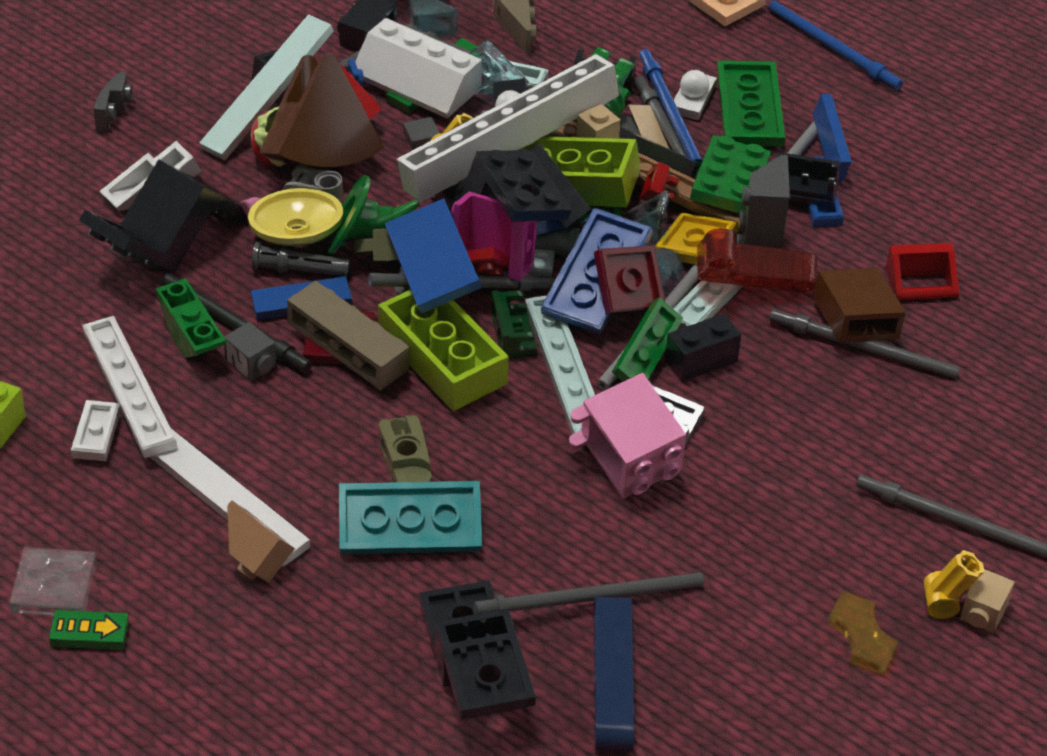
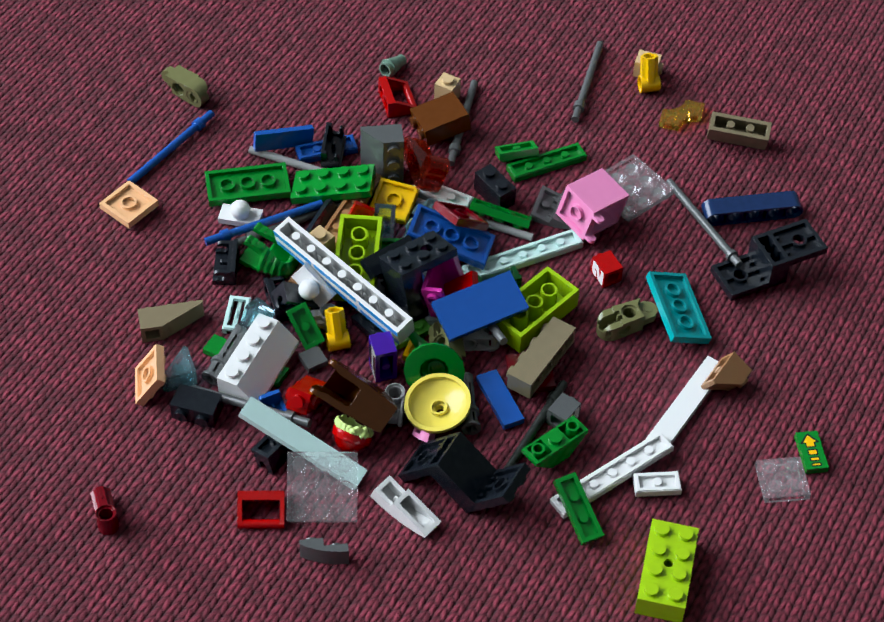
camera: 100 degrees left, 5 degrees up
(77, 329) = (578, 508): none -> green plate
(199, 101) = (322, 487): none -> clear plate
(209, 66) = (250, 496): none -> red tile
(385, 174) = (382, 356): none -> dark purple brick
(474, 105) = (305, 325): none -> green plate
(513, 450) = (606, 268): none -> red brick
(688, 519) = (641, 183): none -> clear plate
(765, 431) = (546, 162): none -> green tile
(786, 390) = (517, 150): none -> green plate
(797, 687) = (739, 130): none -> dark tan brick
(930, 327) = (446, 84): none -> tan brick
(950, 61) = (186, 85): none -> olive piece
(994, 276) = (392, 65): none -> sand green cone

